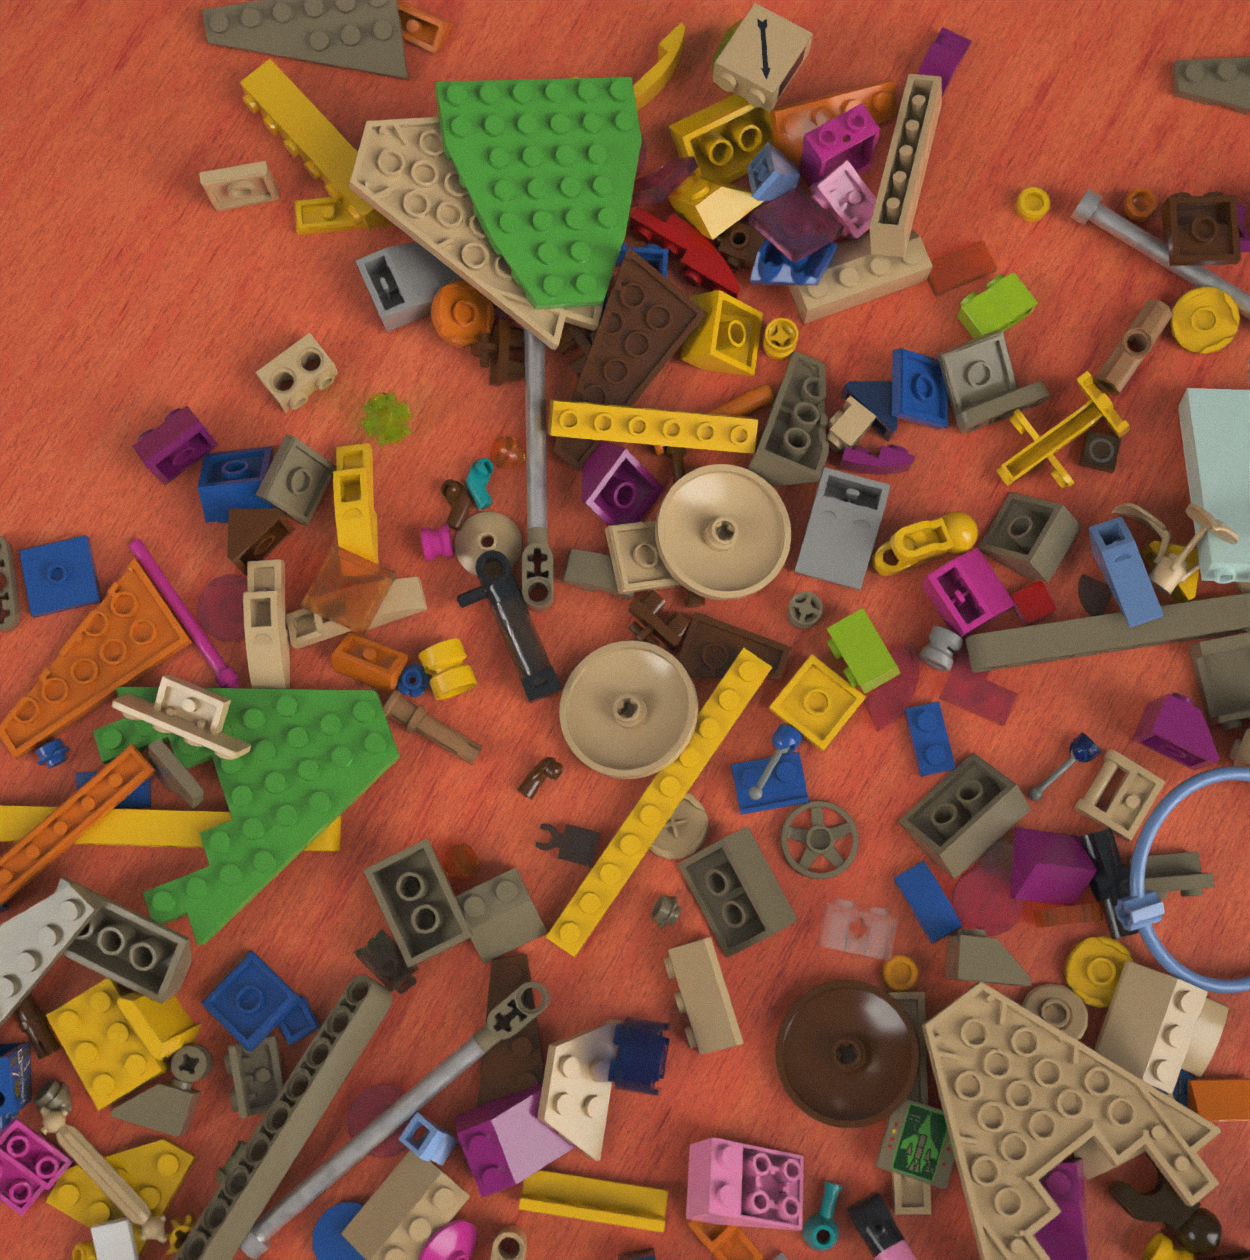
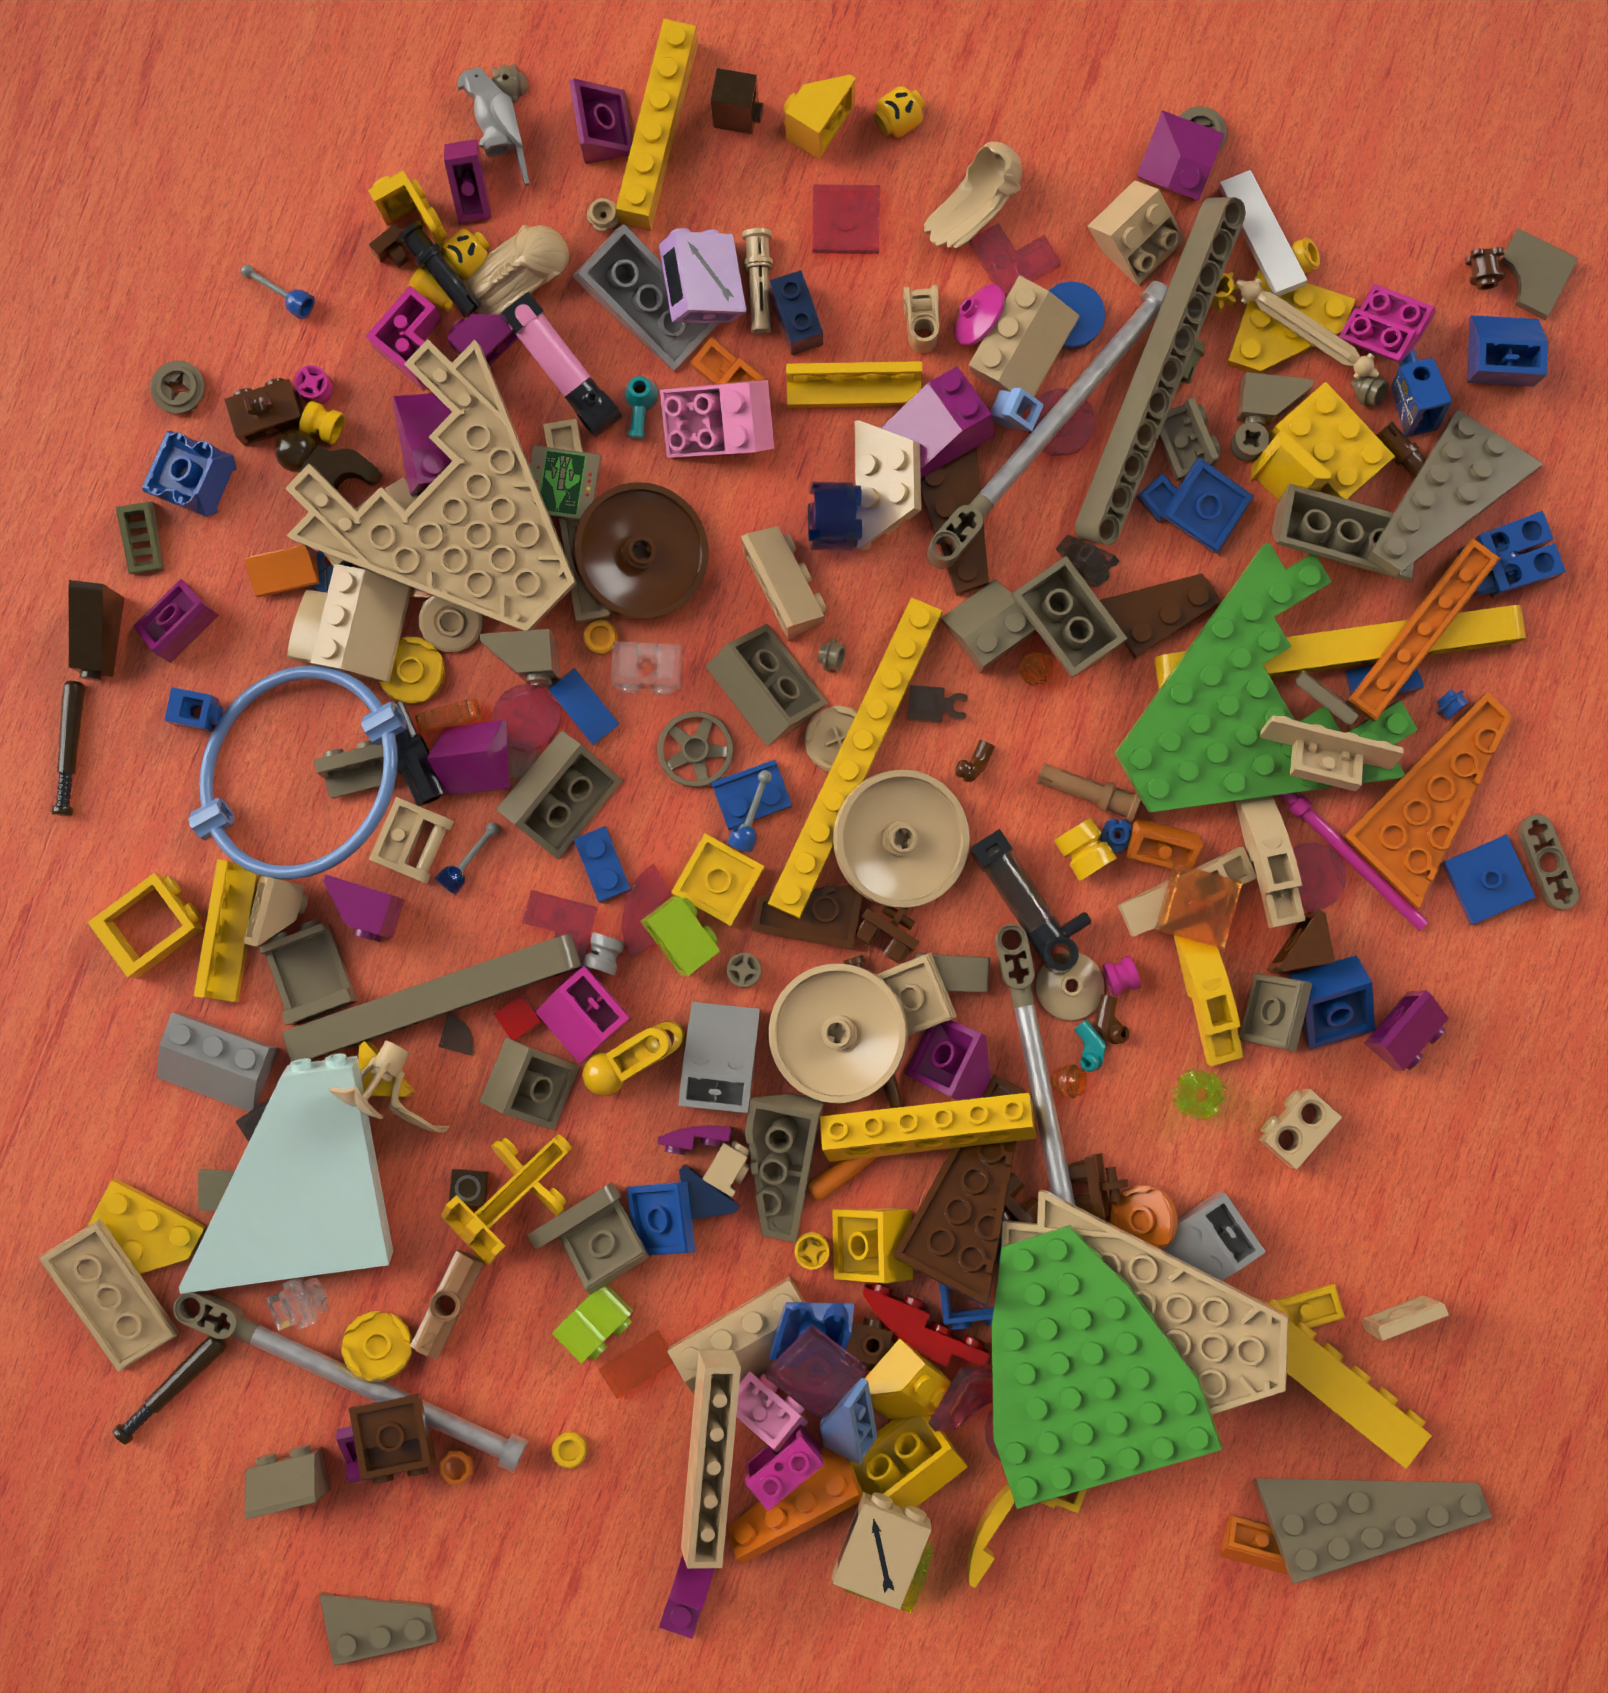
camera: 175 degrees right, 5 degrees up
(324, 900) = (1159, 610): none -> reddish brown wing
(1124, 571) = (431, 1056): medium blue slope -> none

